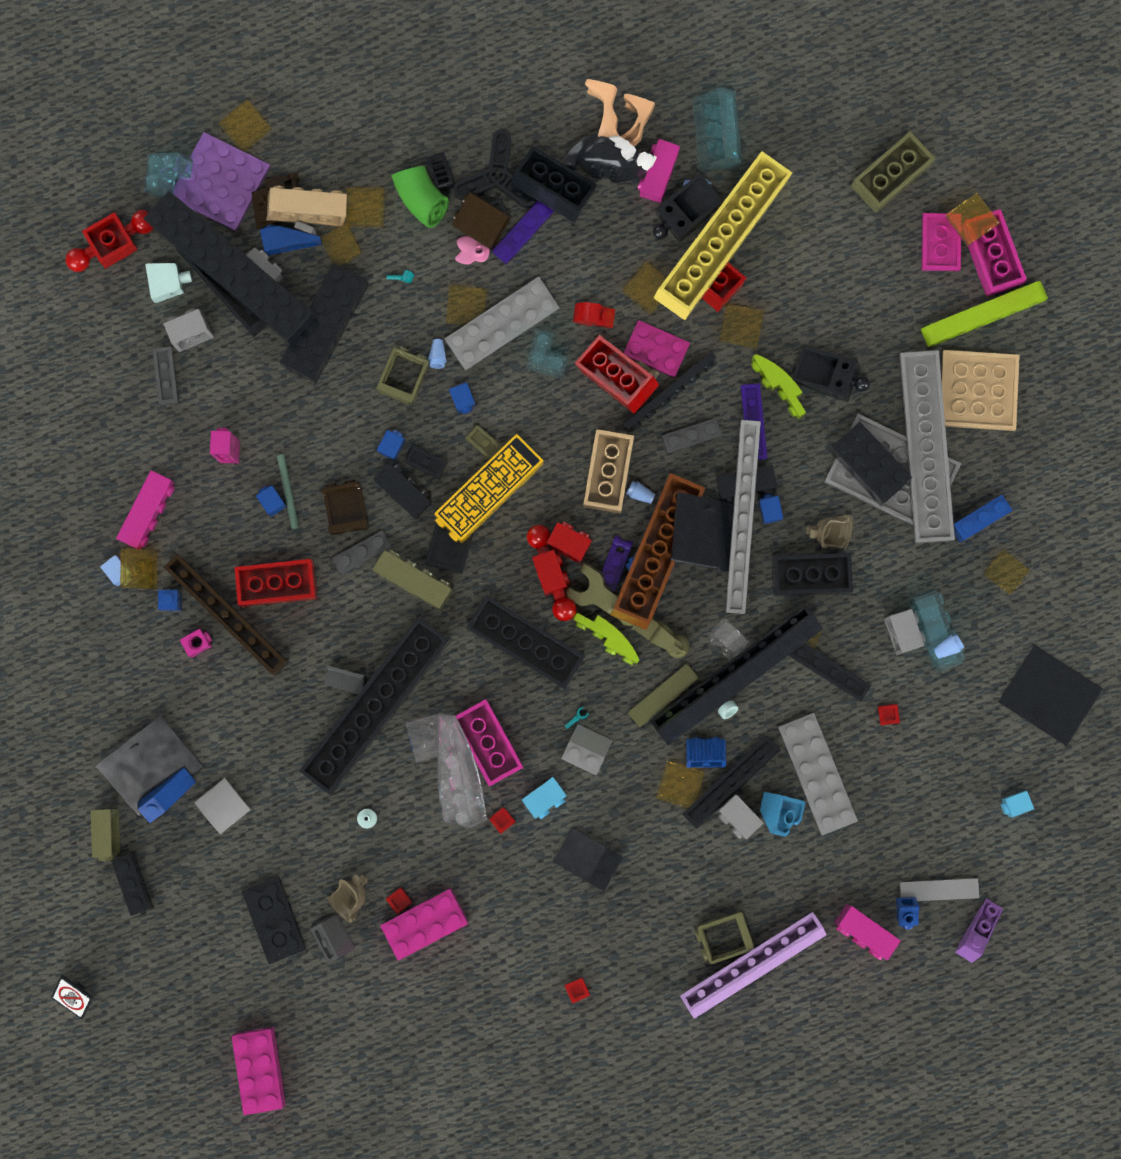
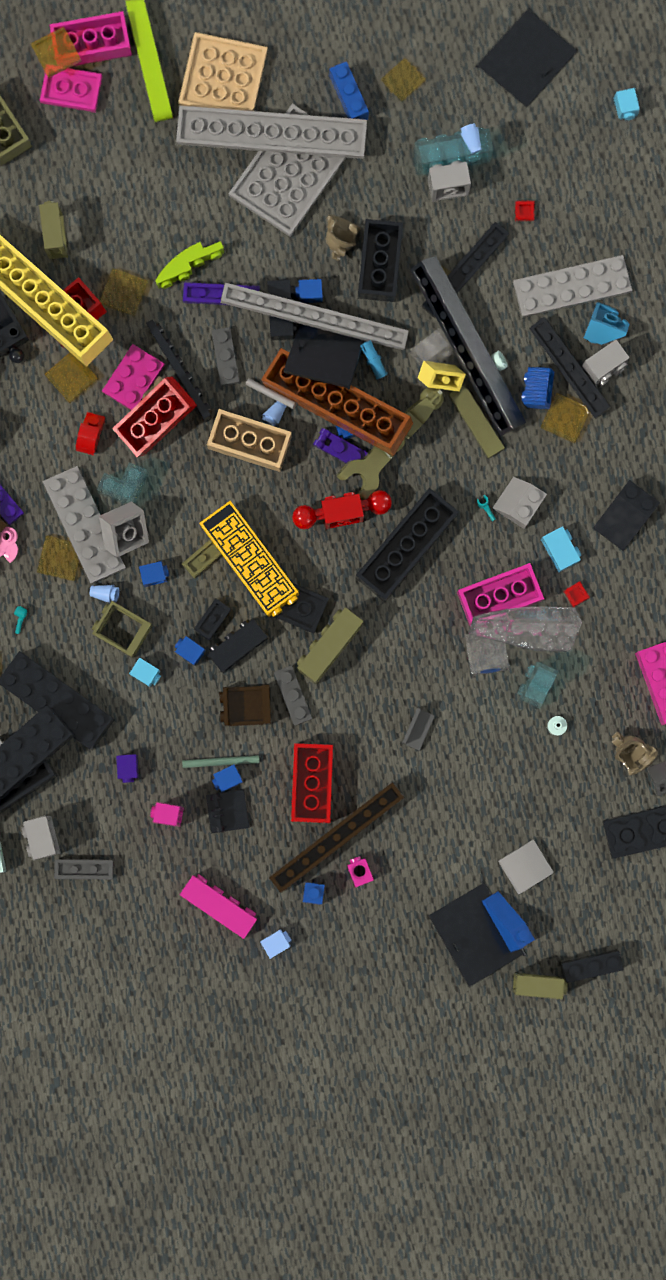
camera: 85 degrees left, 0 degrees up
(138, 569) = (277, 920): clear yellow tile -> none
(239, 505) = (227, 811): none -> black hinge
(268, 402) = (127, 768): none -> dark purple brick
(363, 405) = (145, 673): none -> medium azure brick
(374, 706) = (448, 701): black brick -> none
(399, 900) = (641, 705): red tile -> none
(403, 792) = (537, 685): none -> clear light blue brick
(499, 361) = (124, 529): none -> light grey brick
(569, 543) = (315, 487): red brick -> none
(615, 640) = (417, 459): lime slope -> none
(660, 485) = (271, 393): none -> light grey bar
(701, 652) = (441, 376): none -> light yellow brick
(709, 583) = (373, 359): none -> dark azure pin
(791, 246) = (53, 230): none -> olive window
(824, 370) = (181, 217): black slope -> none
(870, 463) = (281, 187): black brick -> none

